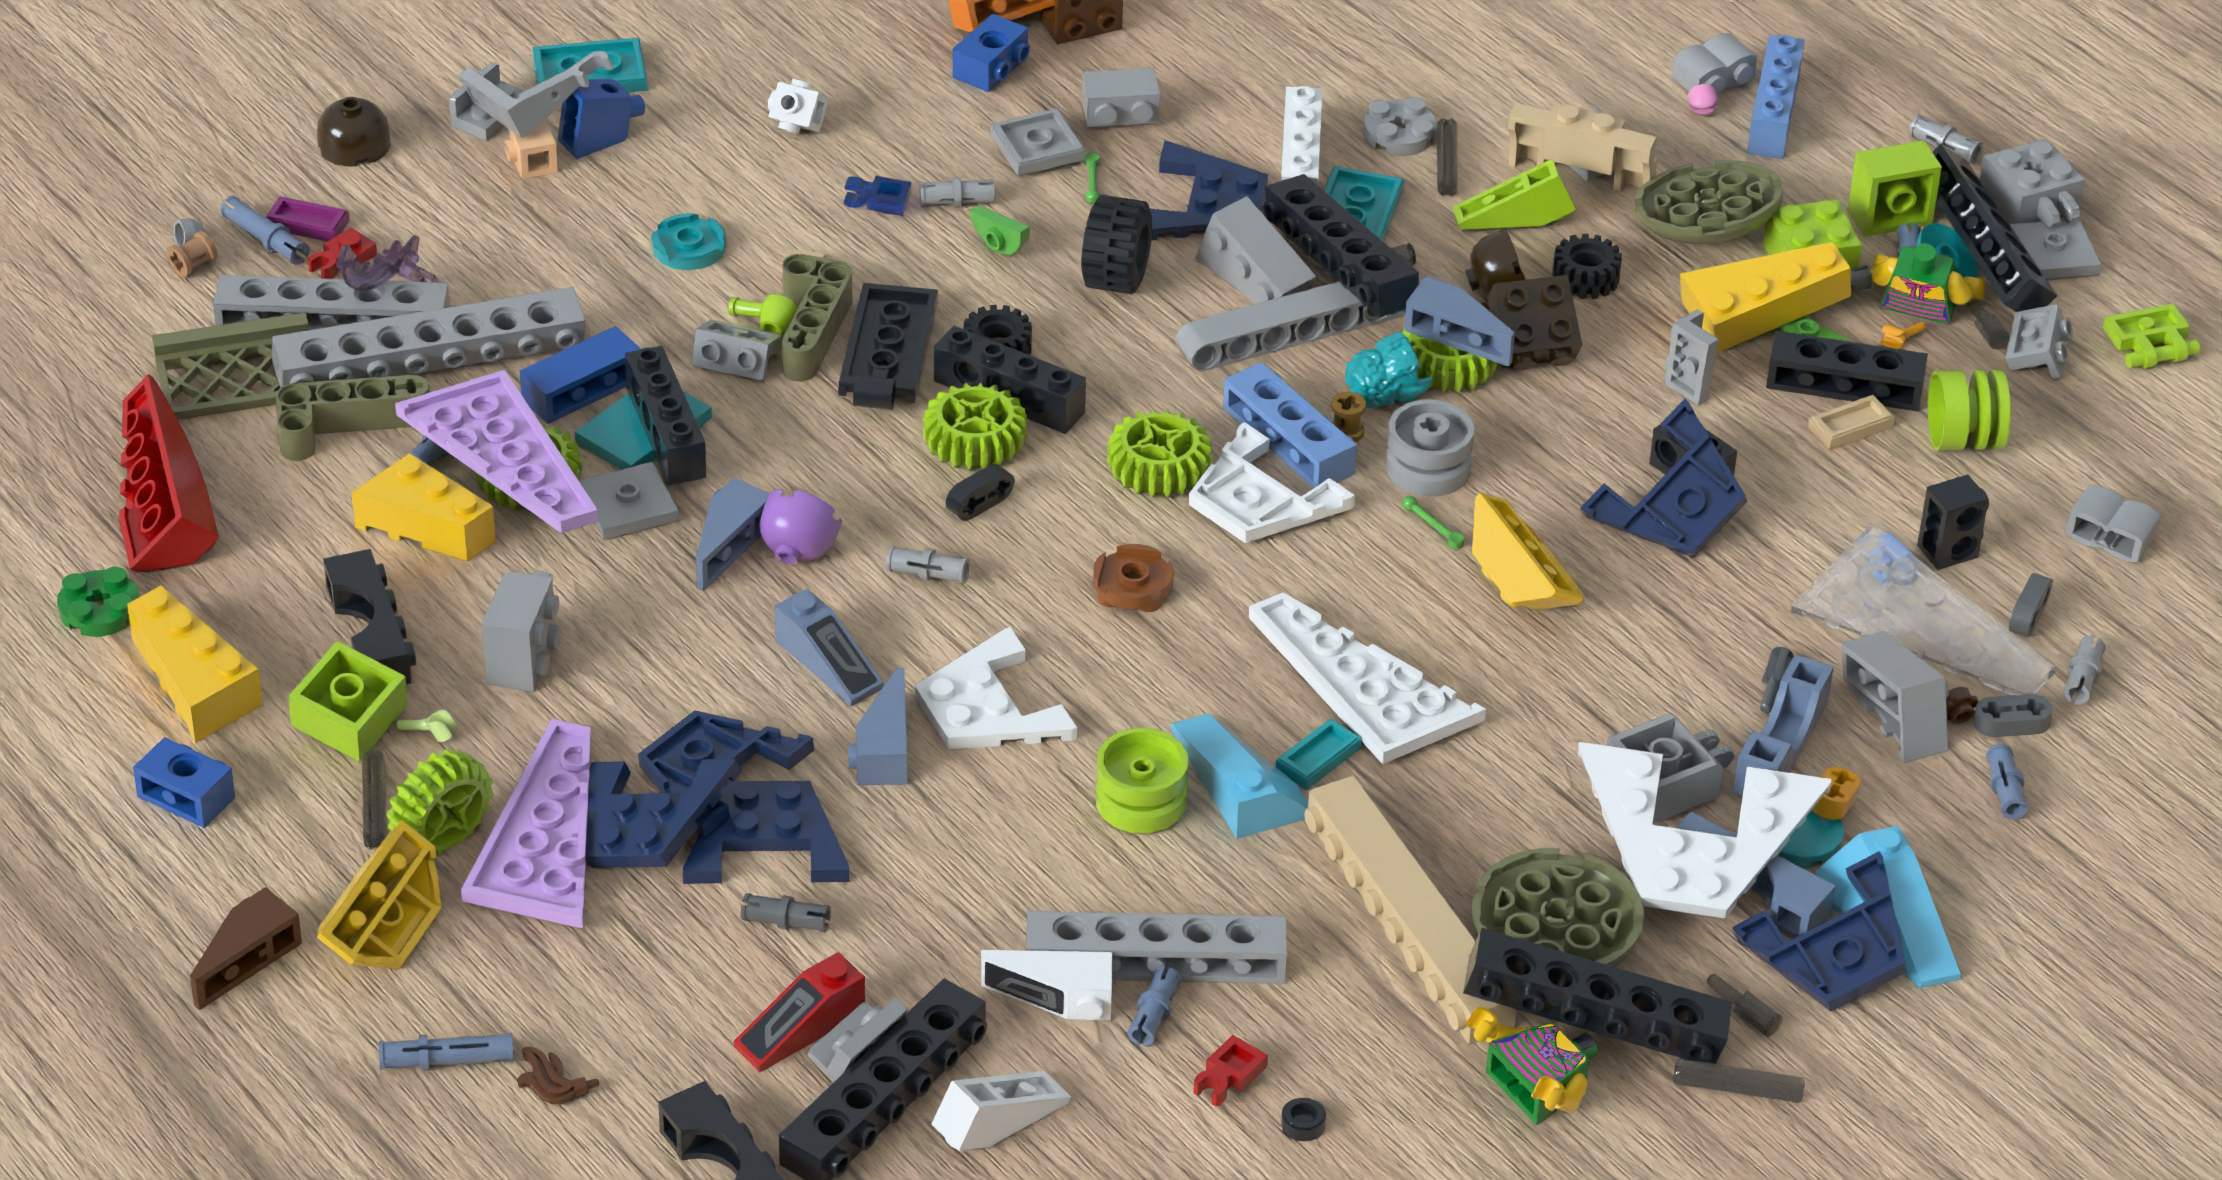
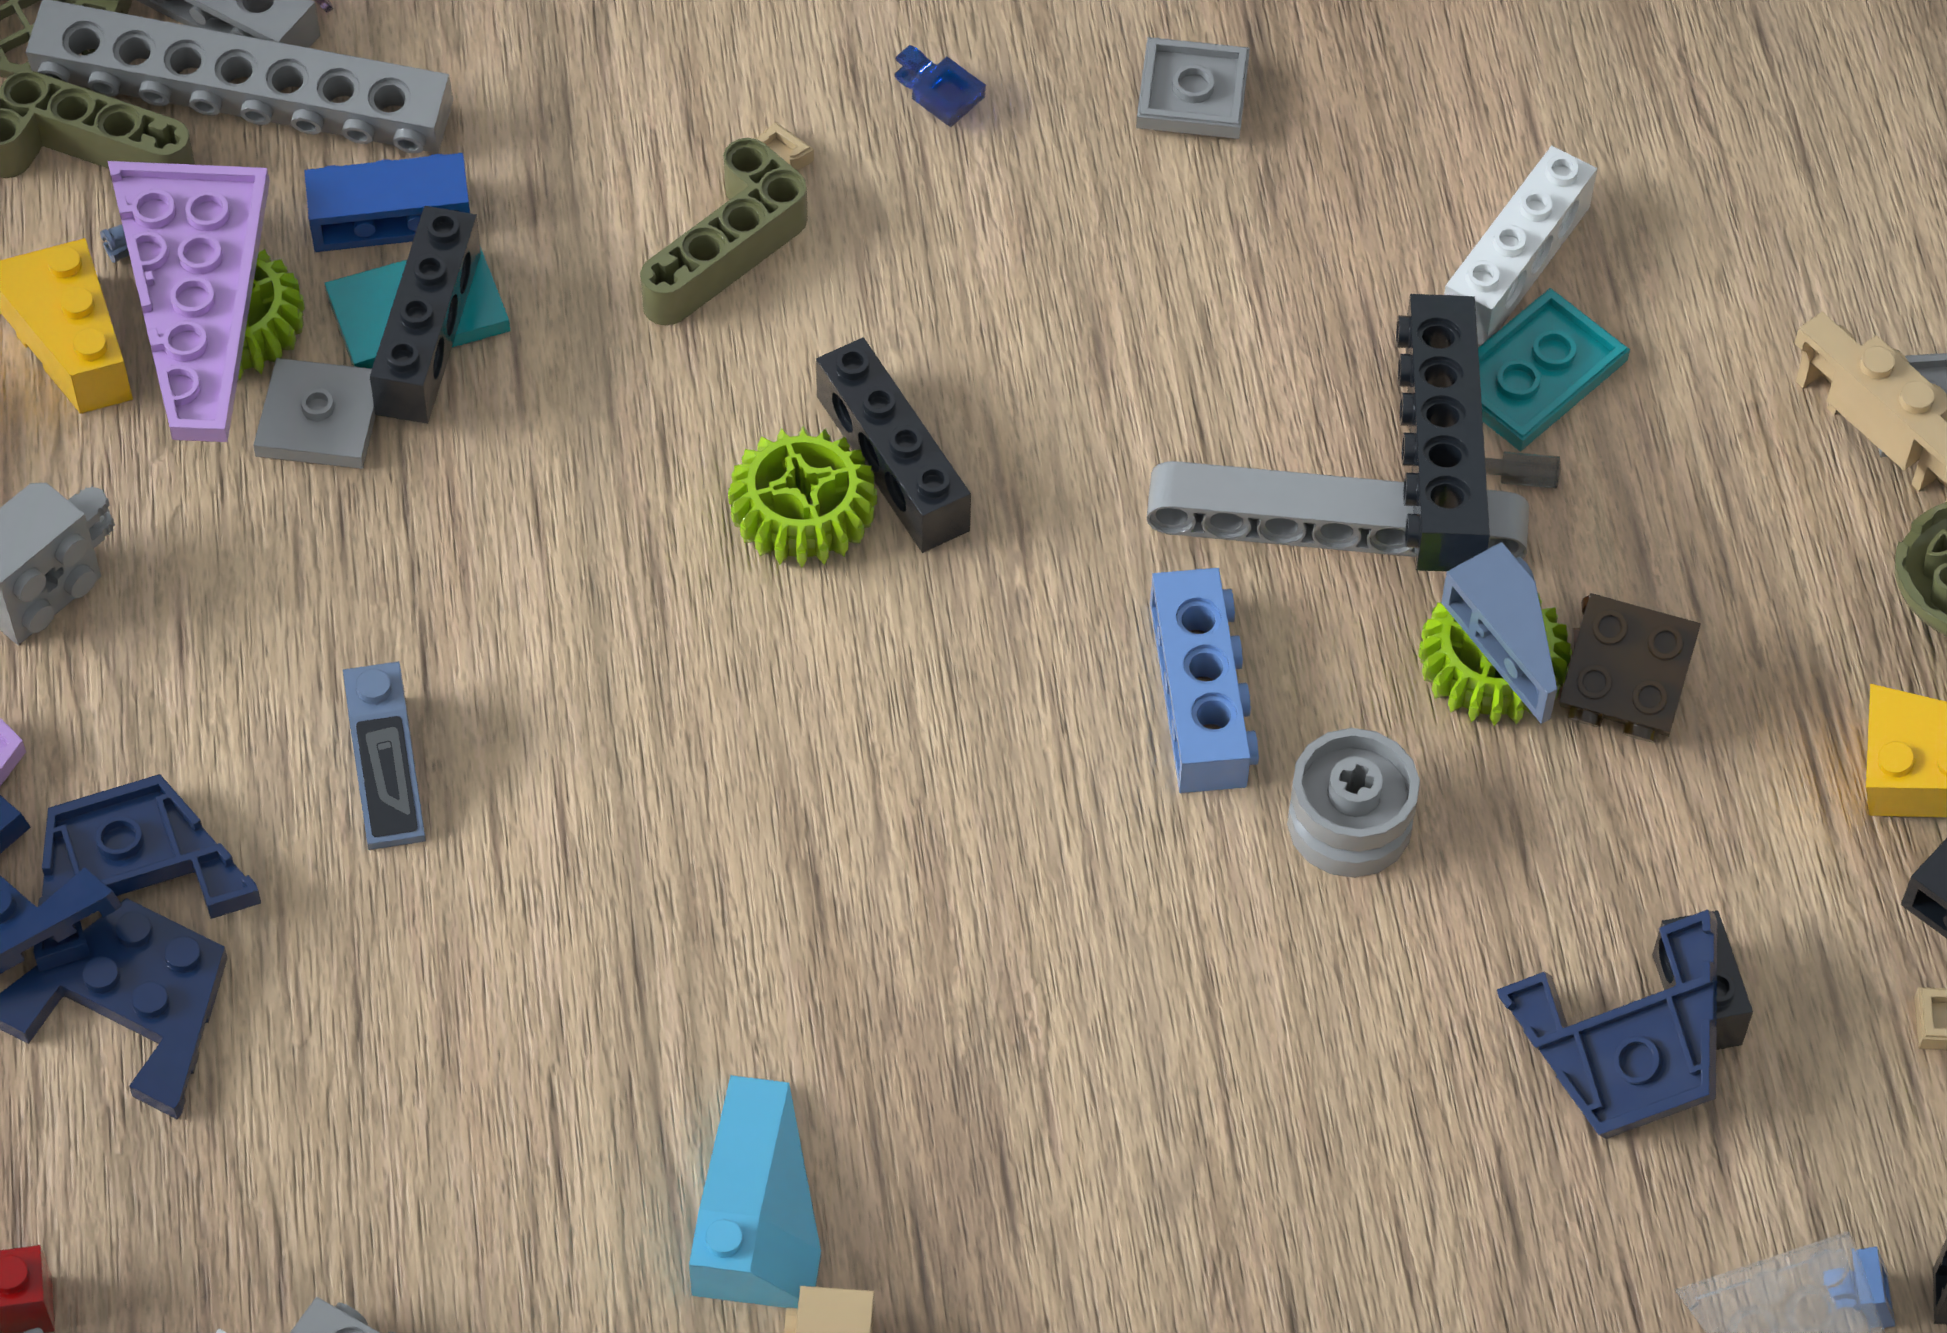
camera: 30 degrees right, 15 degrees up
(688, 242) = (665, 54): teal tile -> none
(729, 529) = (397, 514): sand blue slope -> none
(734, 349) = (599, 240): light grey bracket -> none
(774, 312) = (680, 206): lime bar -> none
(785, 912) = (55, 1135): dark grey pin -> none
(798, 526) = (465, 560): medium lavender cylinder -> none
(882, 737) = (357, 922): sand blue slope -> none
(888, 330) = (794, 308): black hinge -> none
(928, 564) = (599, 682): light grey pin -> none
(956, 192) = (1039, 121): light grey pin -> none
(974, 709) = (506, 919): white wing -> none
(980, 492) = (738, 600): black beam -> none
(996, 323) = (937, 346): black tyre -> none
(999, 231) = (1041, 209): bright green plate -> none
(1092, 160) = (1250, 143): bright green hinge -> none
(1116, 244) = (1155, 301): black tyre -> none
(1116, 587) = (843, 853): dark orange plate -> none
(1120, 97) = (1337, 66): light grey brick -> none
(1141, 780) = (608, 1158): lime wheel -> none
(1159, 452) = (969, 641): lime gear -> none
(1214, 188) = (1367, 274): dark blue wing -> none
(1252, 254) = (1333, 395): light grey wedge -> none
(1254, 503) = (1069, 773): white wing -> none
(1318, 753) = (882, 1216): teal tile -> none
(1347, 416) = (1285, 700): pearl gold bush -> none
(1364, 685) = (1017, 1154): white wing -> none
(1386, 117) = (1690, 236): light grey plate -> none
(1386, 373) = (1374, 657): teal hair -> none
(1447, 157) = (1714, 337): clear smoke axle -> none
(1455, 539) = (1302, 956): bright green hinge -> none
(1493, 262) = (1643, 556): dark brown cylinder -> none
(1518, 558) = (1352, 1045): yellow wedge -> none
(1522, 201) = (1754, 456): lime slope -> none
(1590, 265) = (1774, 624): black tyre -> none
(1691, 358) = (1802, 821): light grey bracket -> none

